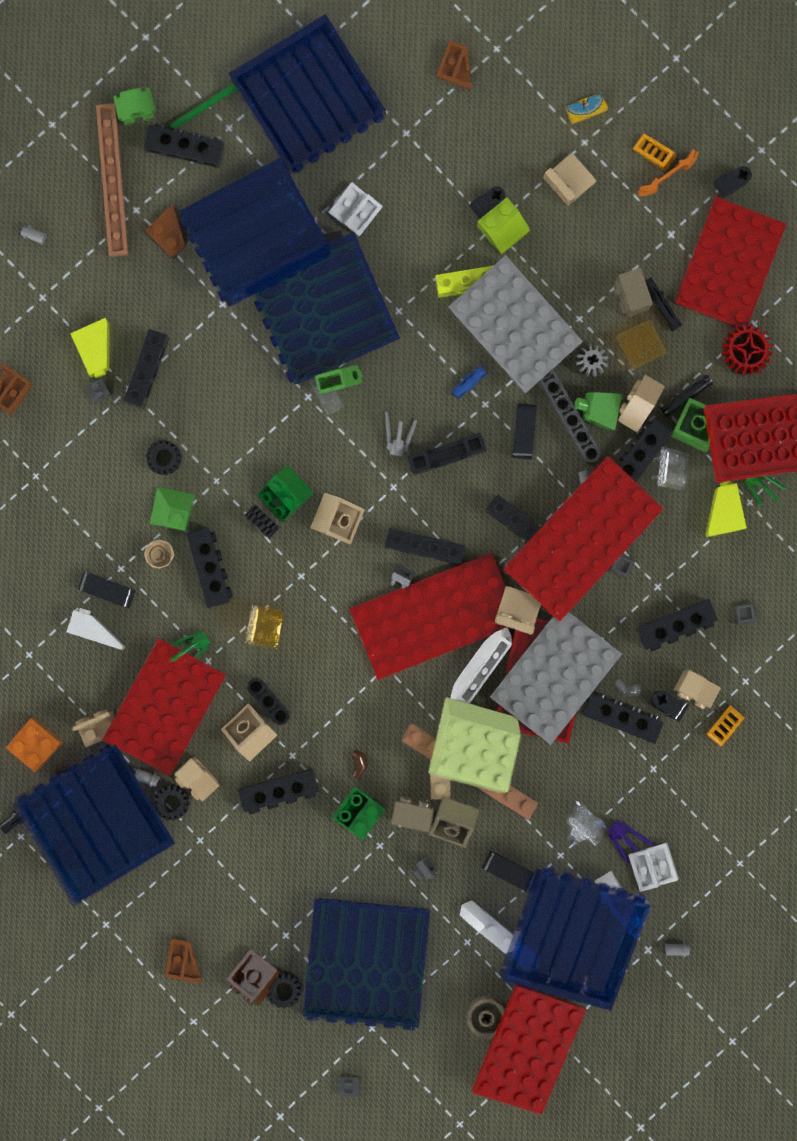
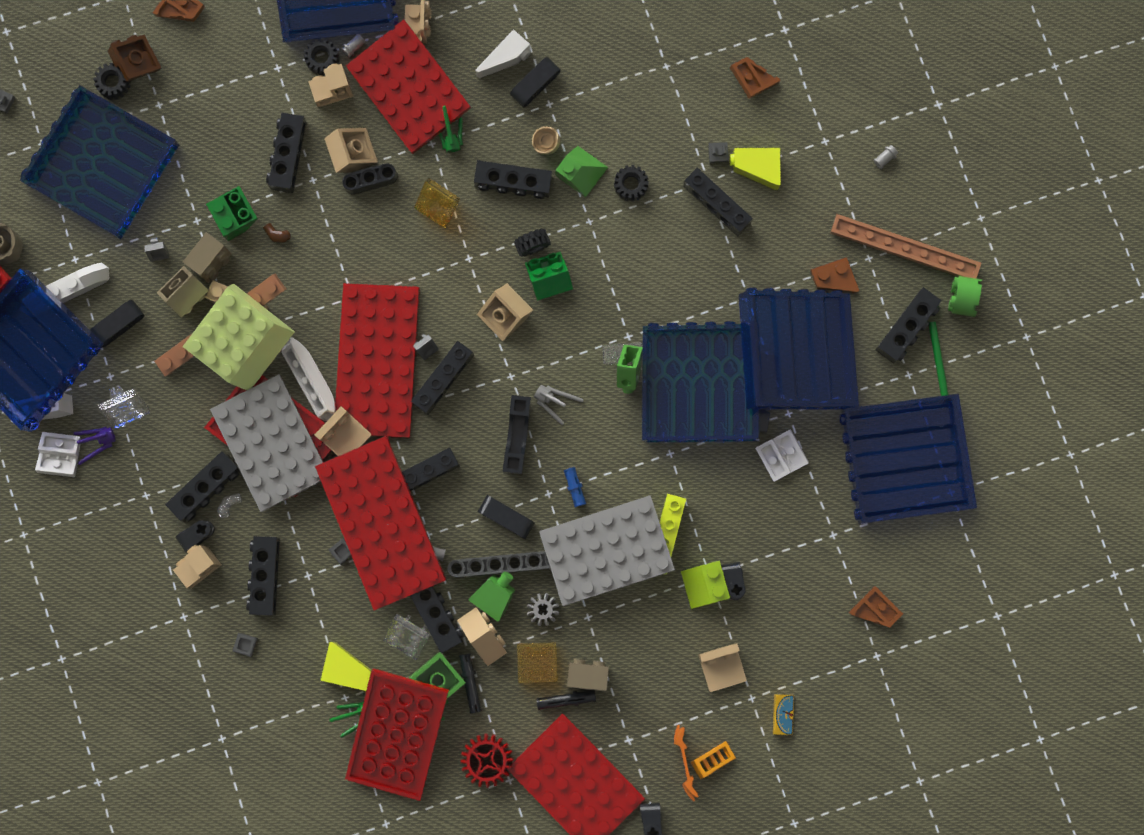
camera: 115 degrees right, 5 degrees down
(725, 736) = (158, 574): light orange slope -> none

